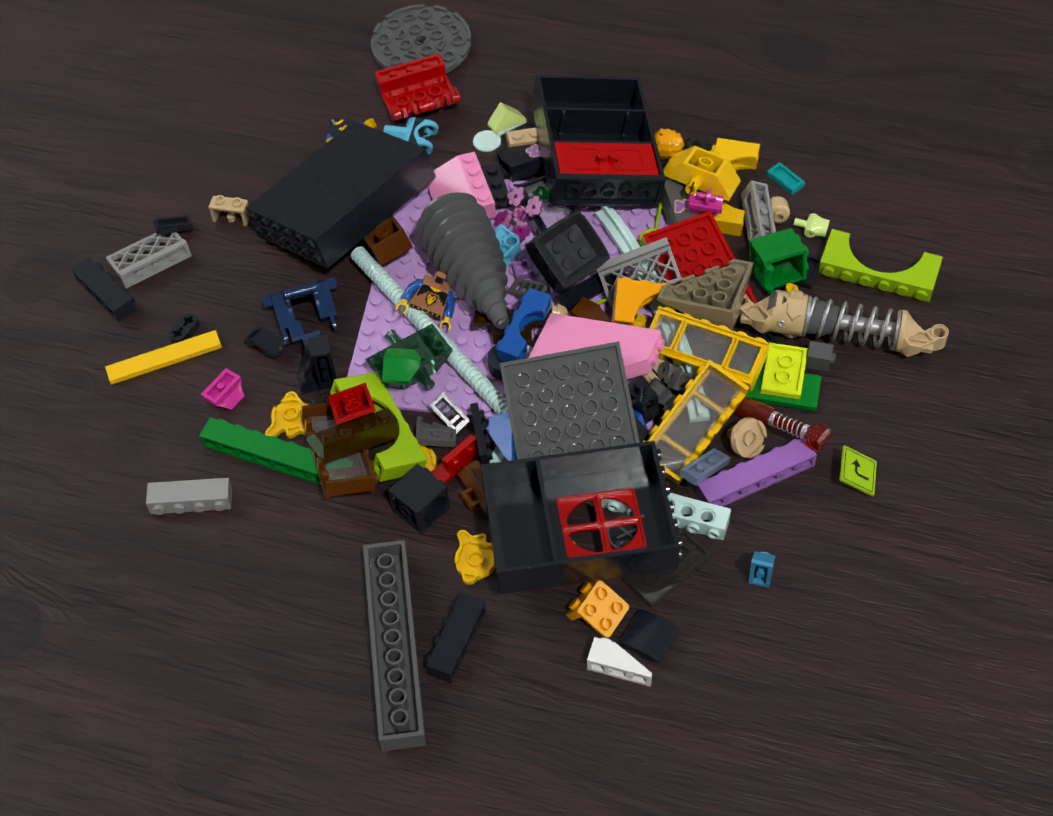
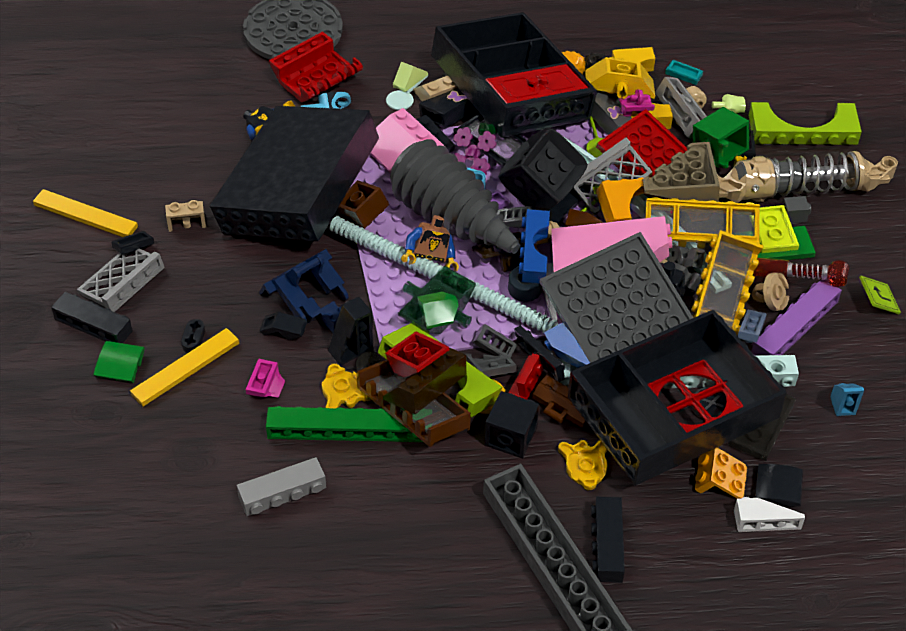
camera: 25 degrees left, 5 degrees down
(108, 336) = (119, 361): none -> green slope
(147, 185) = (85, 213): none -> yellow tile

